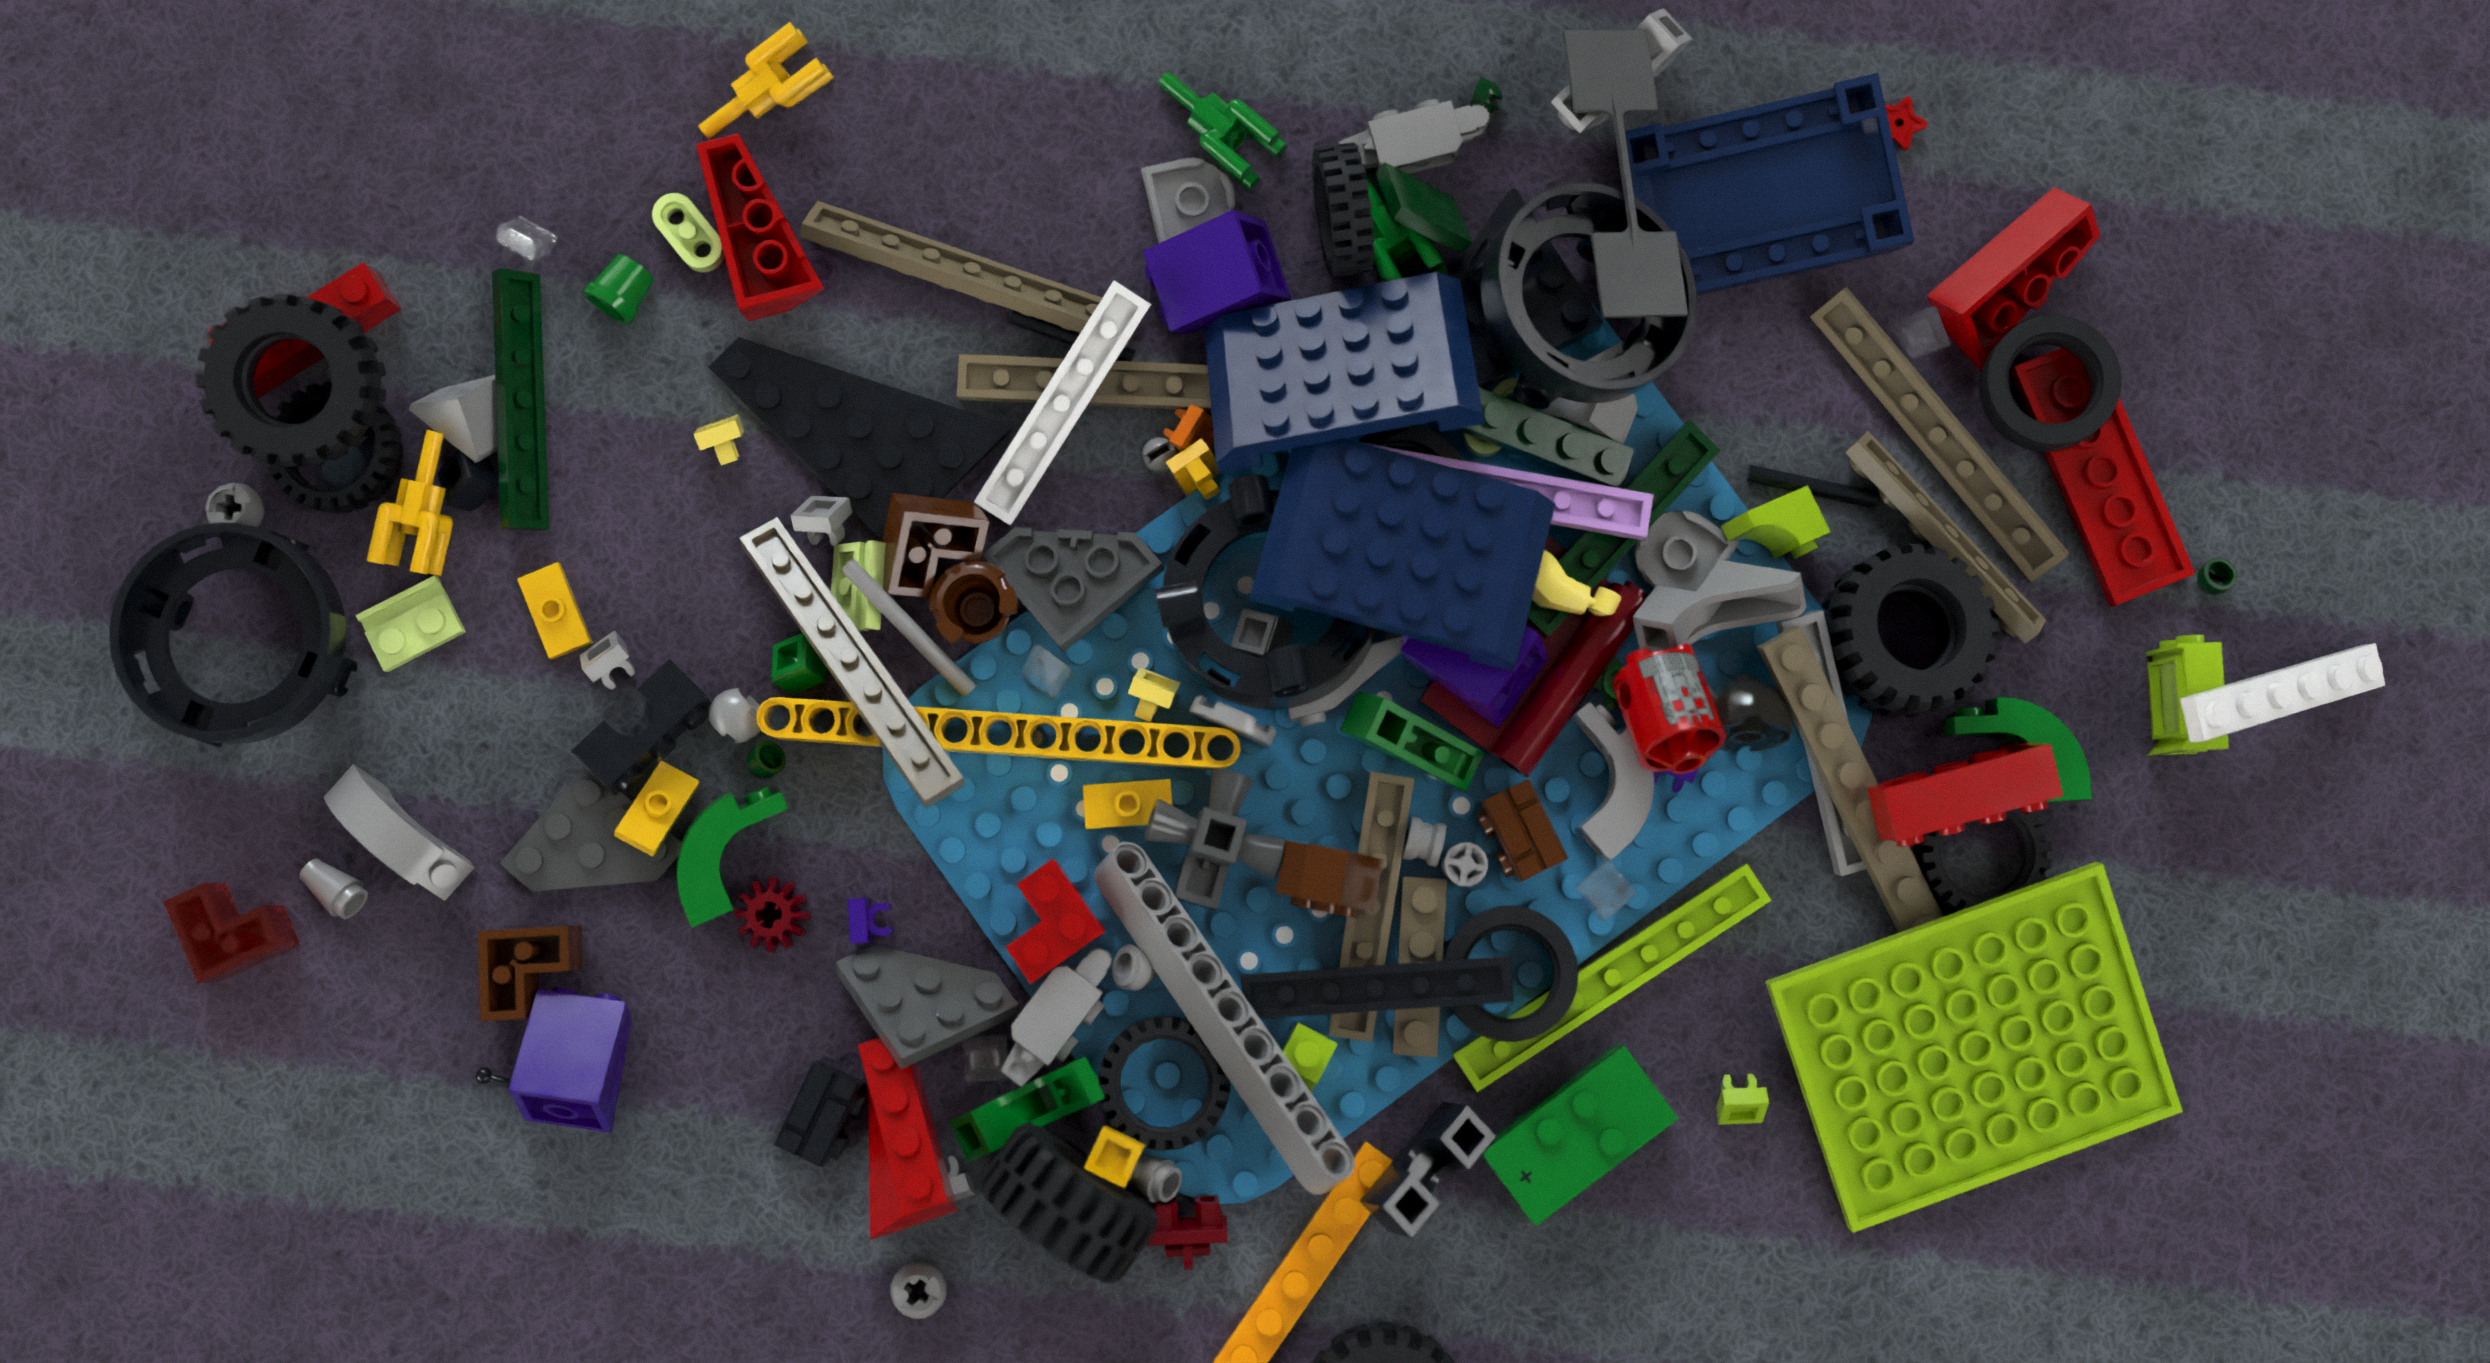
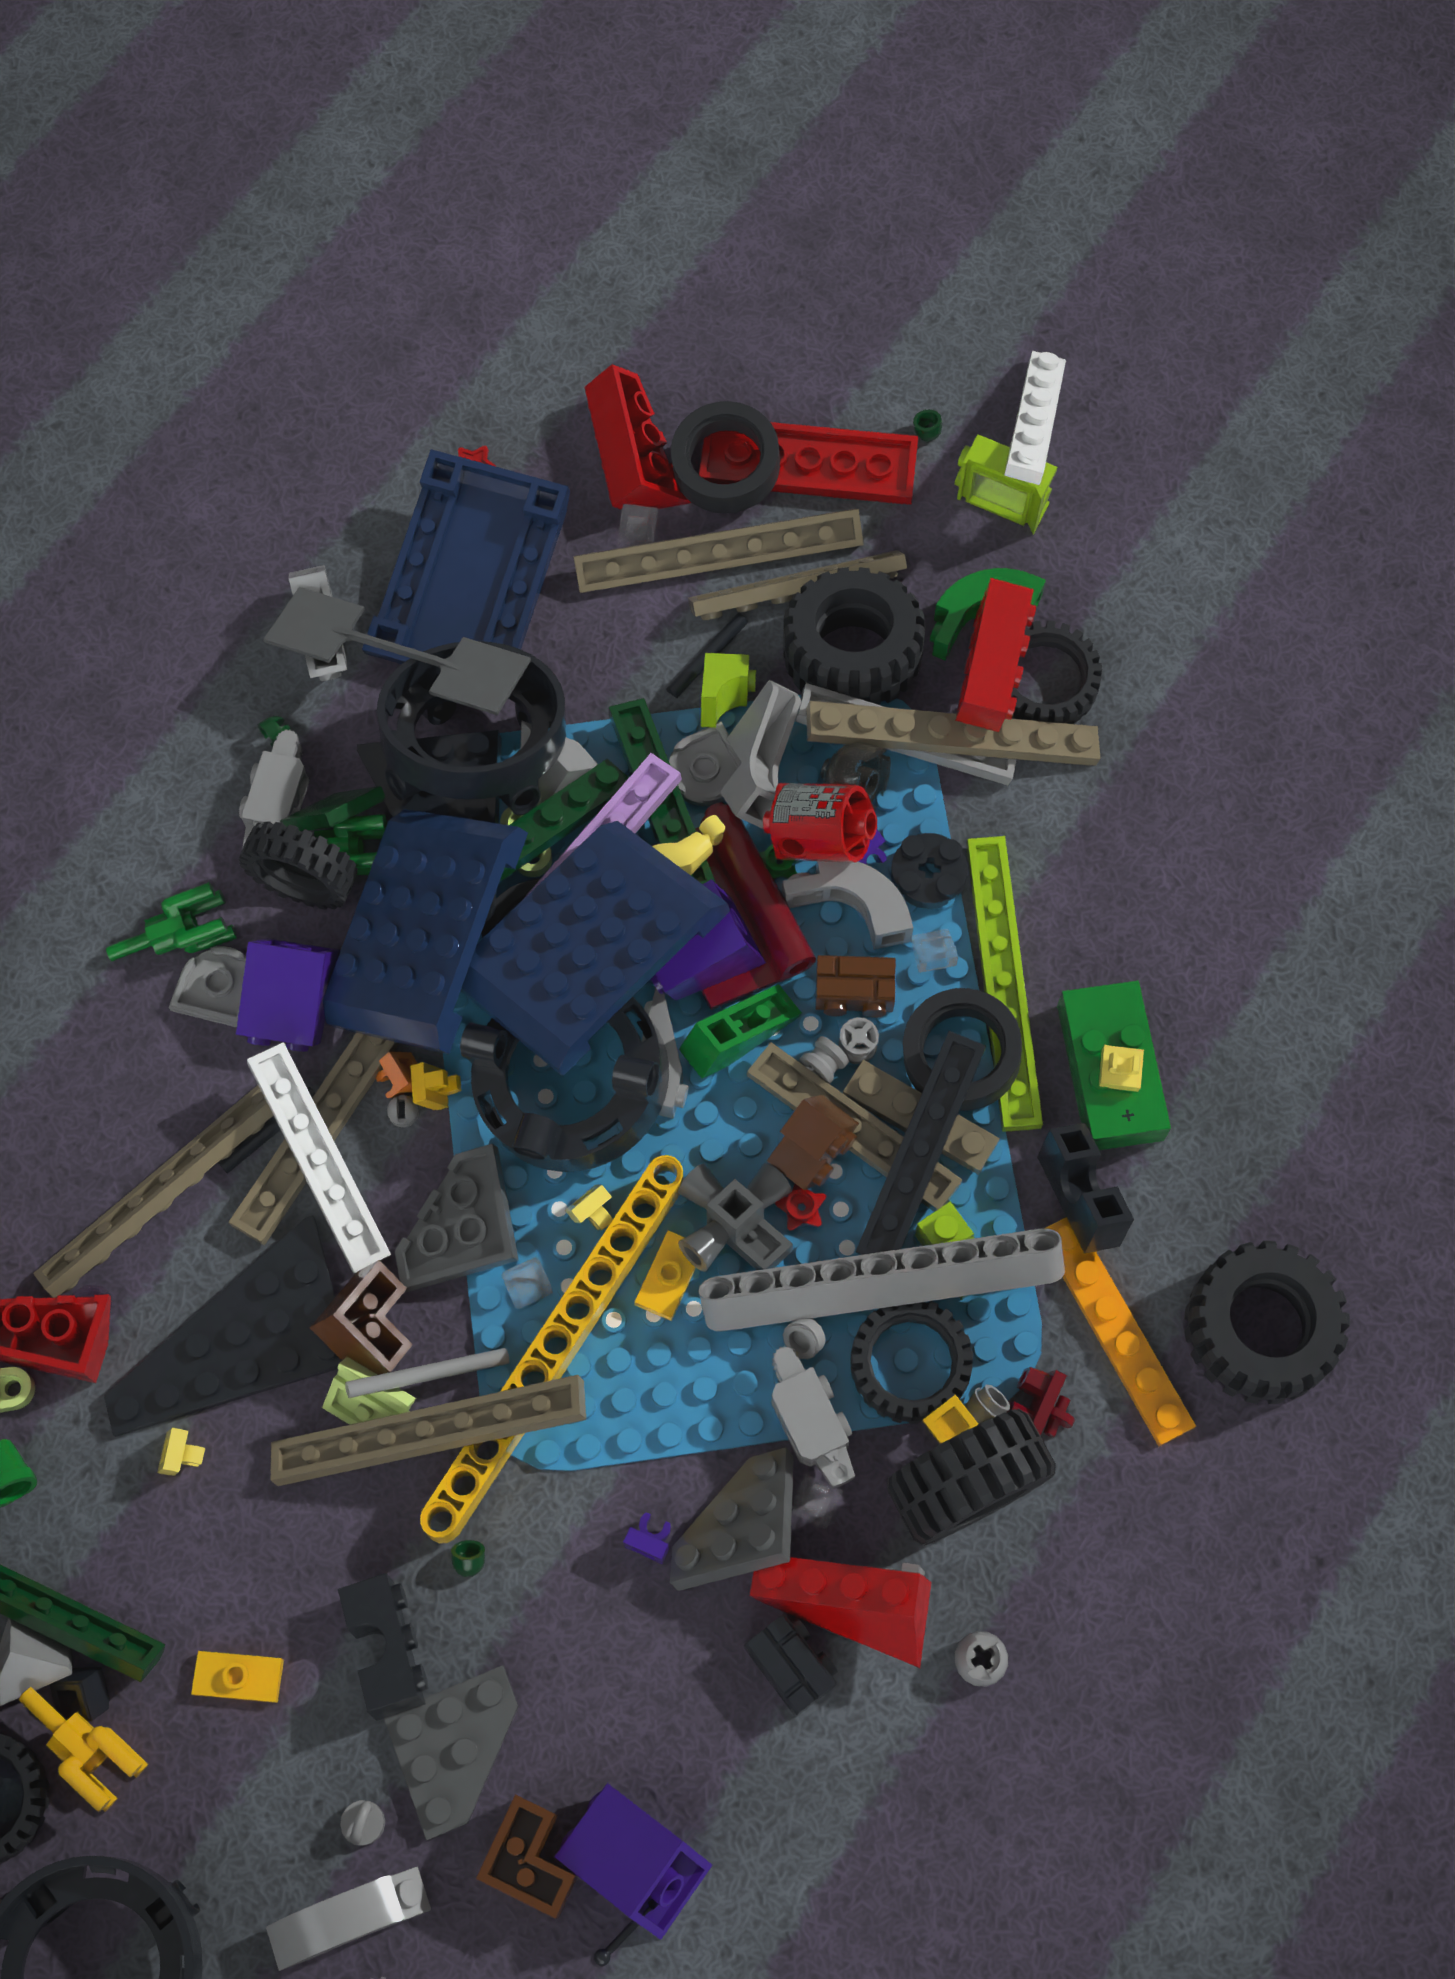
camera: 55 degrees left, 15 degrees down
(411, 623) = (173, 1812): yellowish green plate -> none
(487, 797) = (362, 1823): none -> light grey tile
(605, 656) = (302, 1650): light grey tile -> none
(656, 808) = (457, 1671): yellow plate -> none
(703, 844) = (516, 1651): green arch -> none
(734, 715) = (417, 1561): light grey piece -> none
(782, 926) = (587, 1623): dark red gear -> none
(796, 665) = (402, 1487): green slope -> none
(822, 516) = (292, 1400): light grey tile -> none
(972, 602) = (436, 1309): reddish brown helmet -> none
(1035, 1102) = (873, 1465): green arch -> none
(1065, 925) = (733, 1369): red brick -> none
(1234, 720) = (646, 1148): light grey tile -> none
(1260, 633) = (588, 1099): light grey slope -> none
(1260, 907) = (797, 1217): none -> red plate
(1569, 1147) = (1121, 1068): none -> light yellow tile
(1714, 850) = (937, 850): none -> black plate
(1741, 1104) = (1150, 936): lime tile -> none
(1974, 1046) = (1188, 752): lime plate -> none

